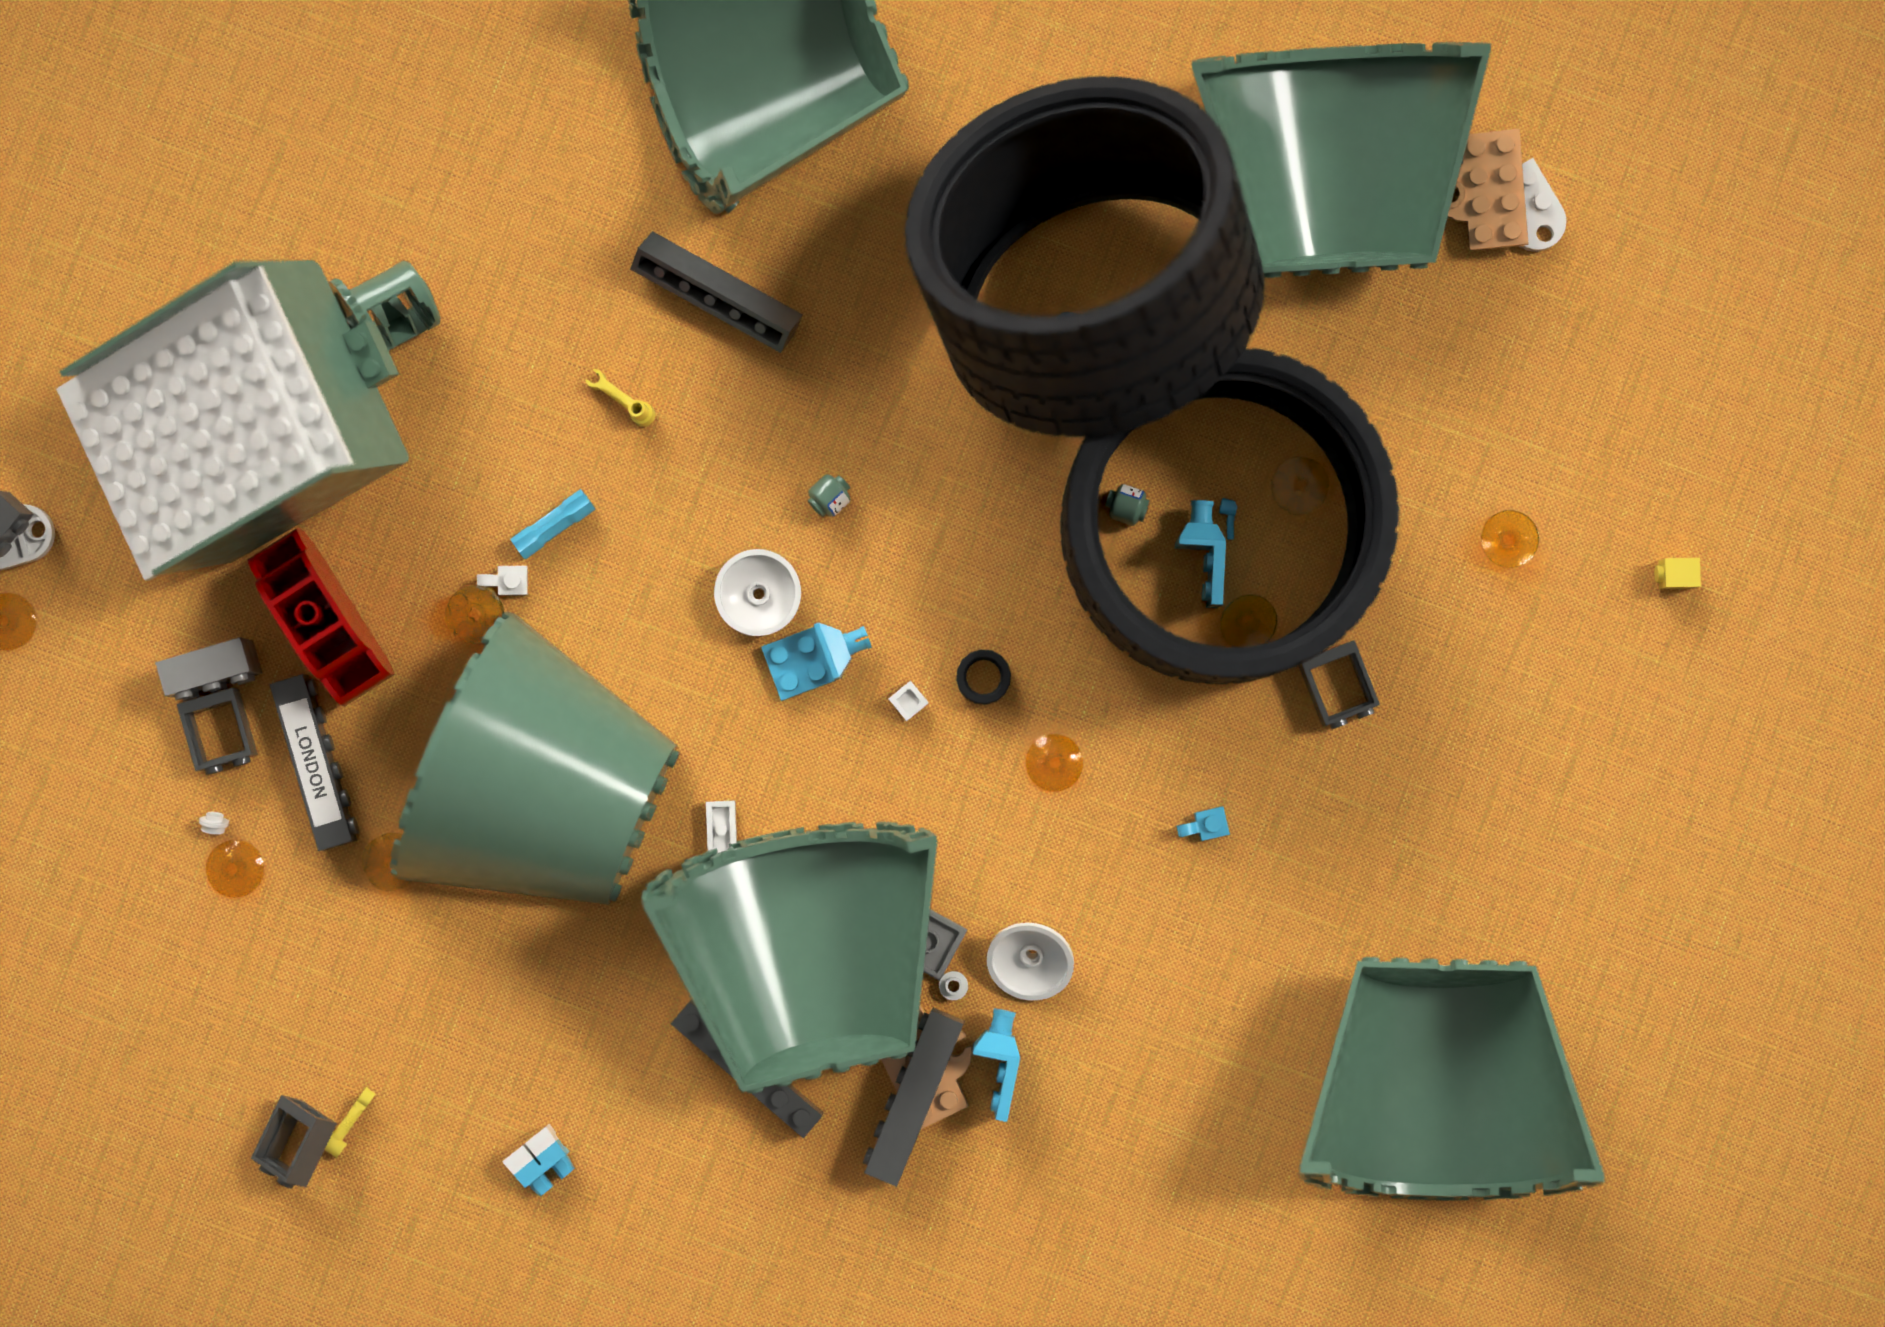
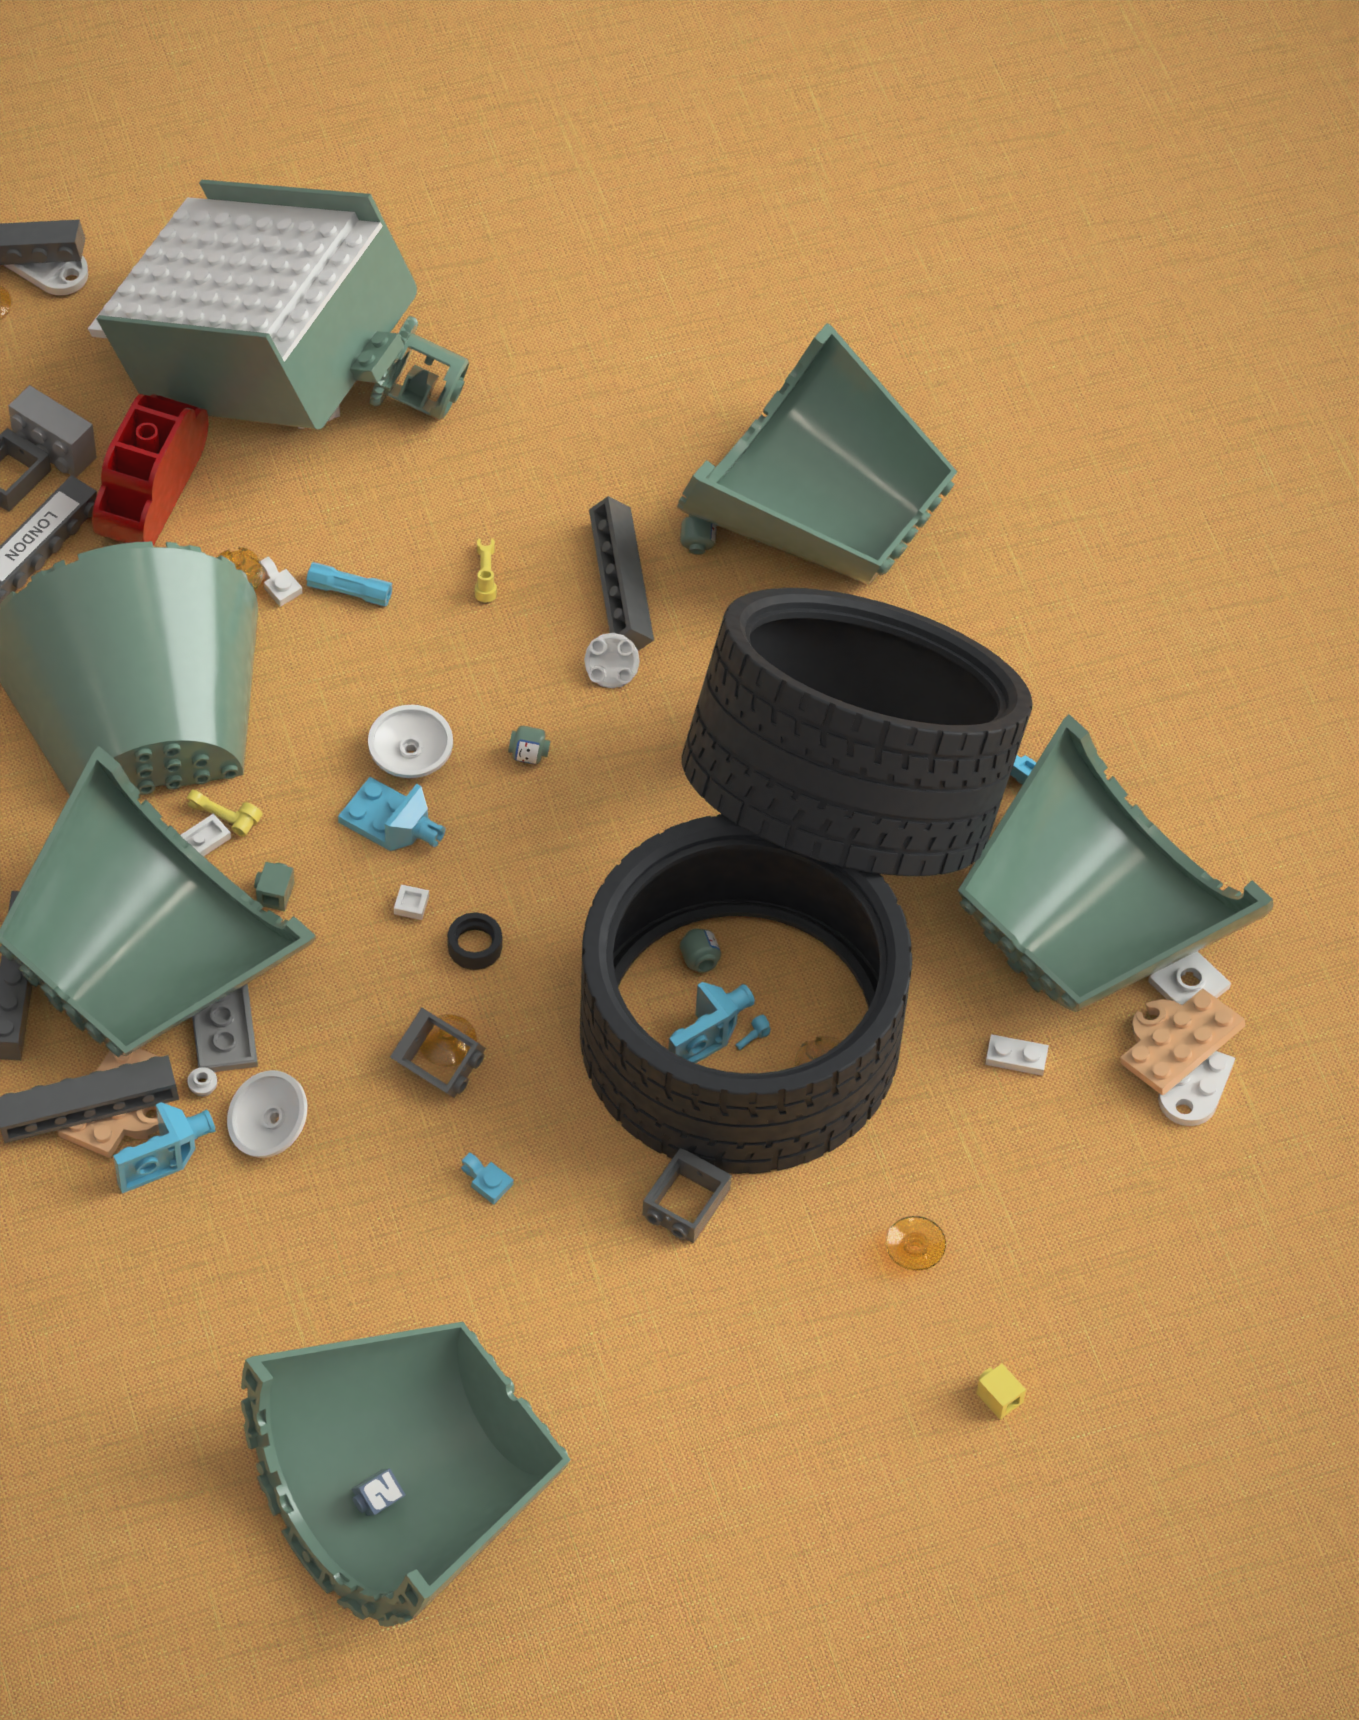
camera: 50 degrees right, 30 degrees down
(726, 780) = (242, 820): none -> light yellow brick
(796, 365) = (611, 660): none -> white dish
(811, 800) = (274, 885): none -> sand green brick
(1081, 807) = (416, 1036): none -> dark grey window
(1400, 325) = (1016, 1055): none -> white plate
(1423, 1111) = (377, 1492): none -> brick

